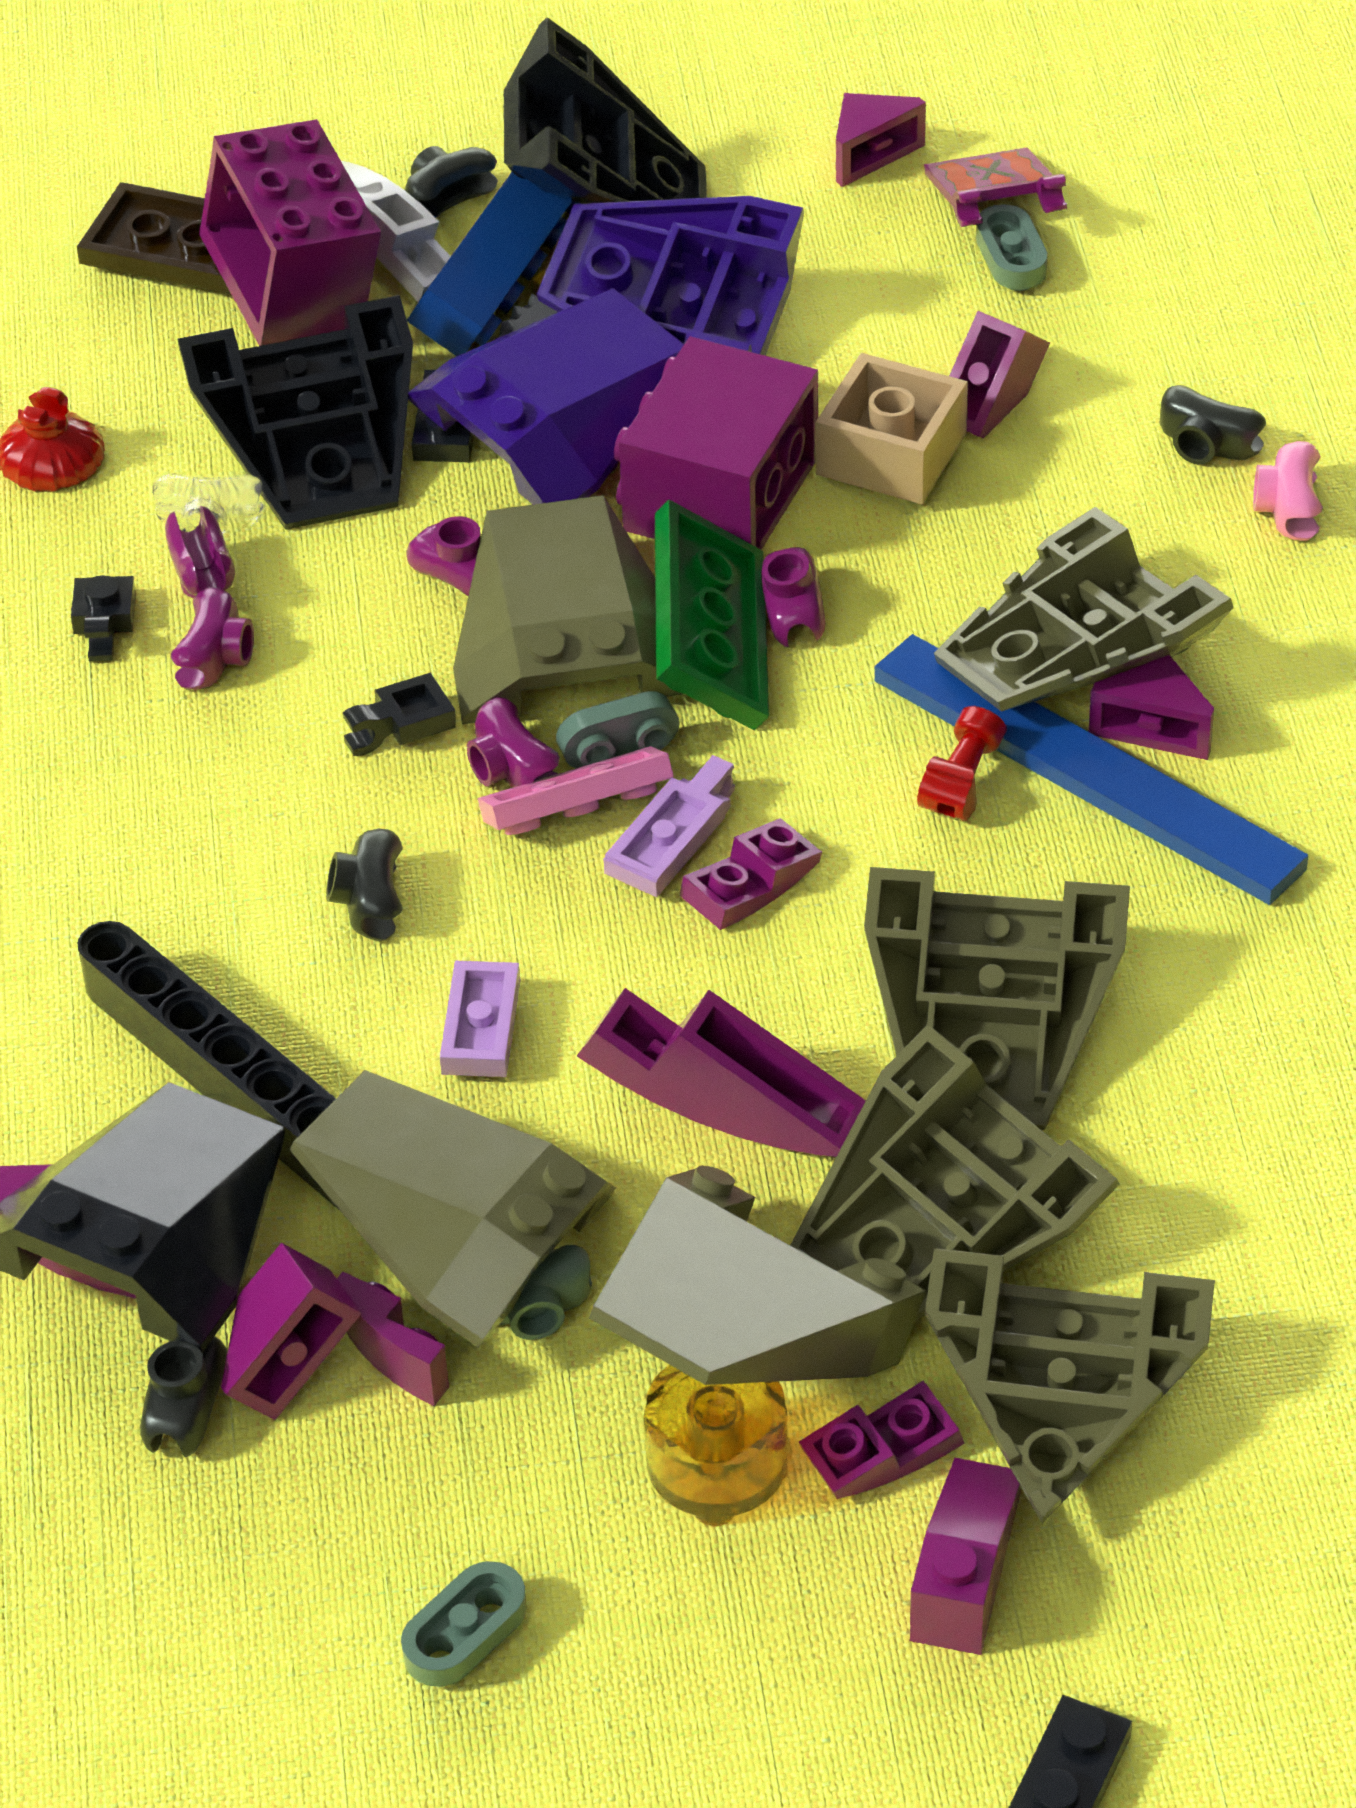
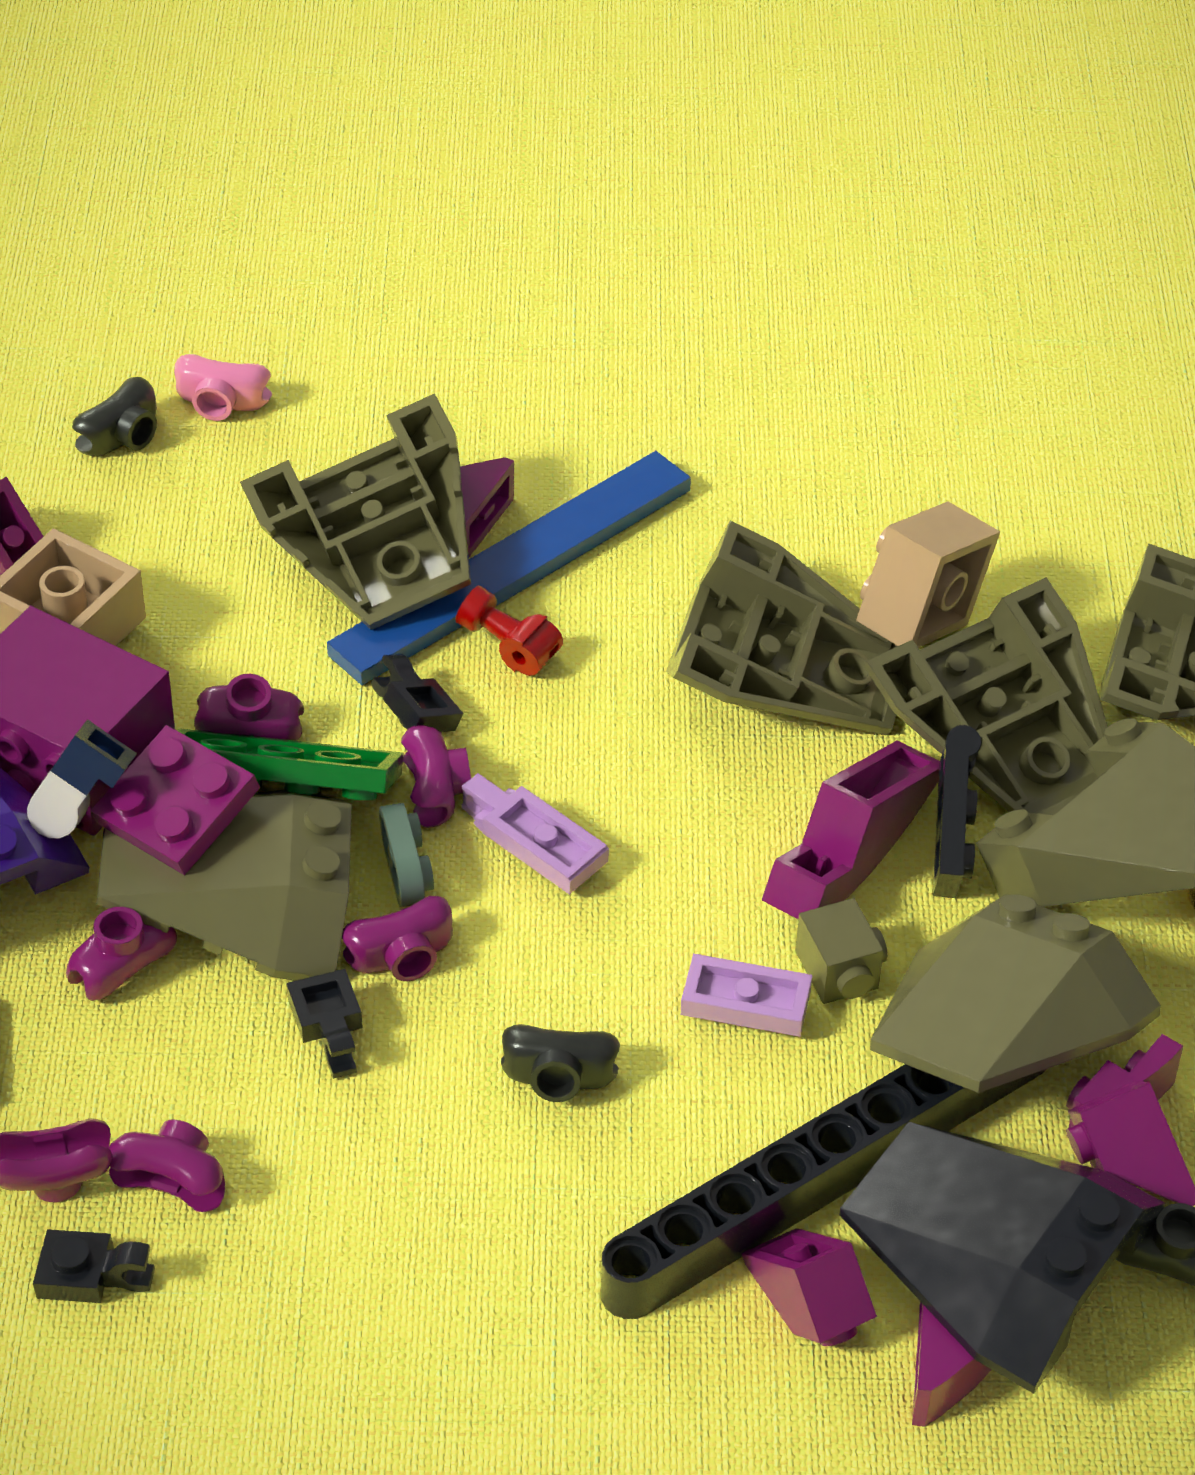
camera: 85 degrees left, 0 degrees up
(96, 1086) = (812, 1285): none -> magenta slope
(546, 1083) = (840, 950): none -> olive brick
(576, 790) = (470, 883): bright pink plate -> none
(586, 446) = (65, 791): none -> leg
(595, 523) = (175, 799): none -> magenta plate
(745, 739) = (437, 774): none -> magenta piece
(756, 873) = (592, 792): magenta slope -> none
(756, 1142) = (955, 809): none -> black plate
(839, 712) = (415, 699): none -> black plate
(1107, 1080) = (927, 575): none -> tan brick

